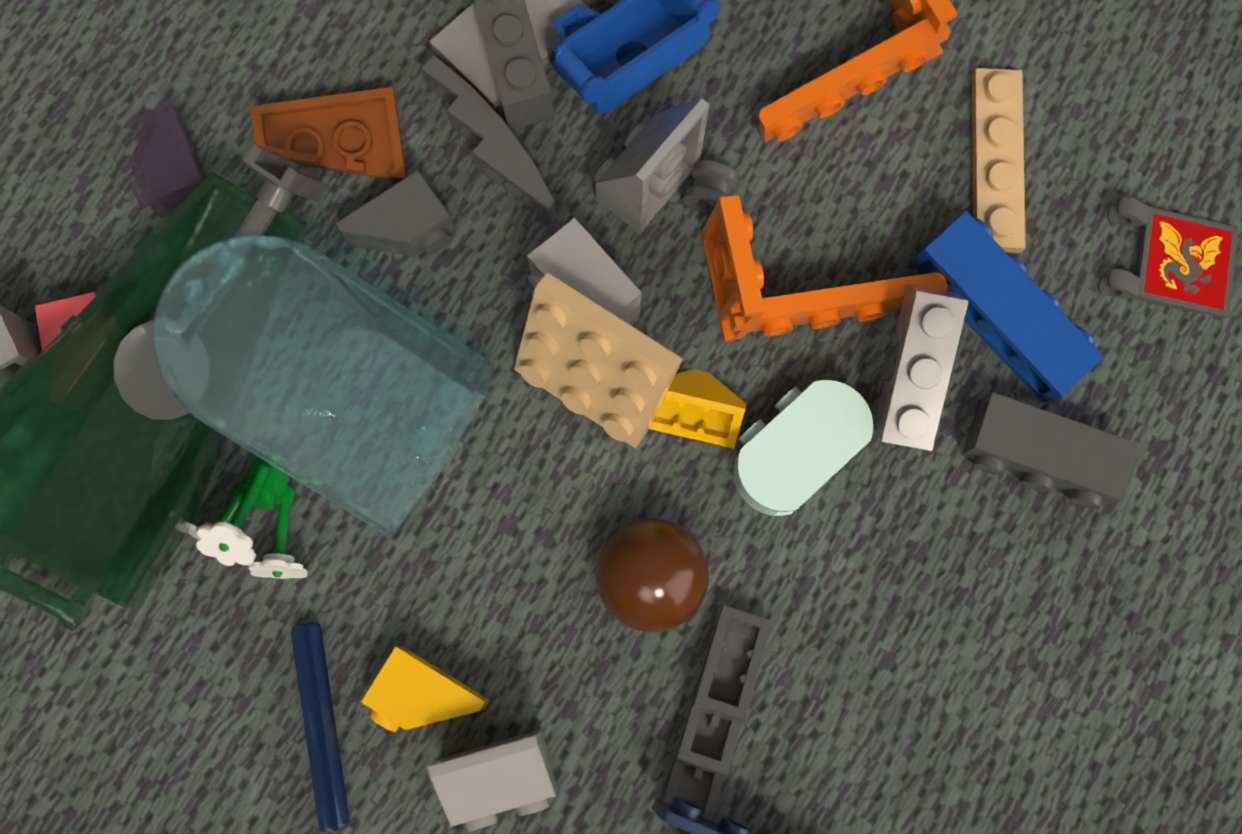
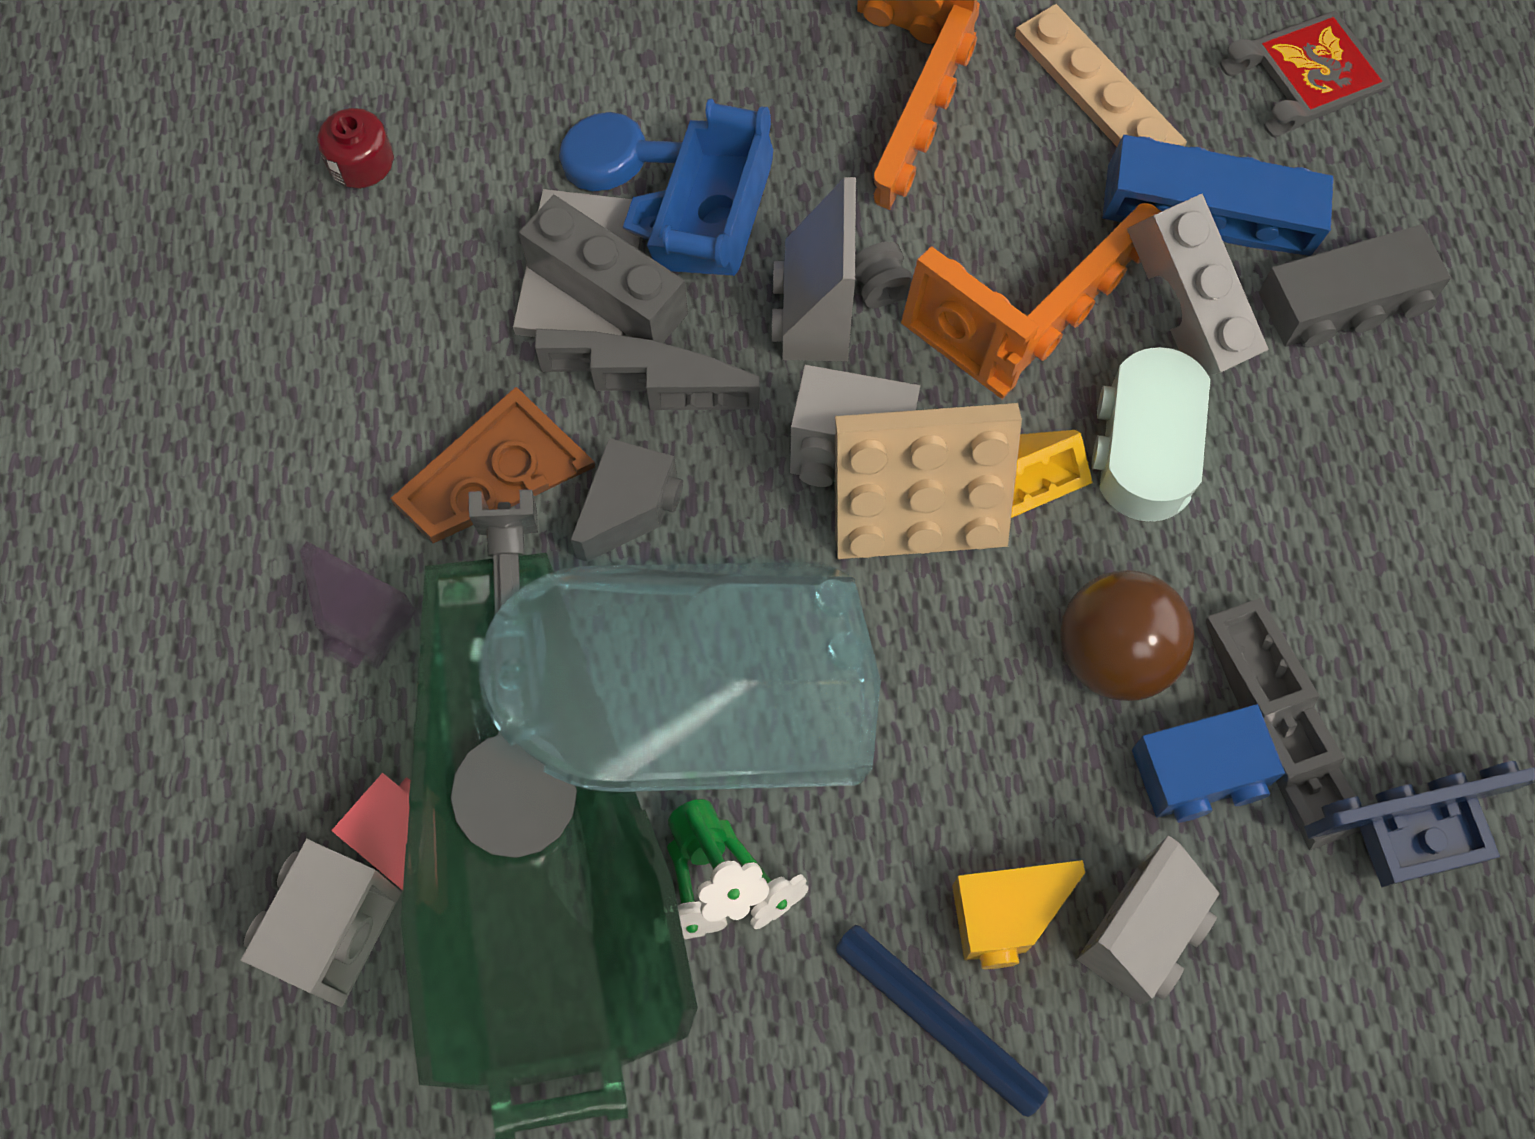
camera: 35 degrees left, 10 degrees down
(633, 704) = (1208, 763): none -> blue brick

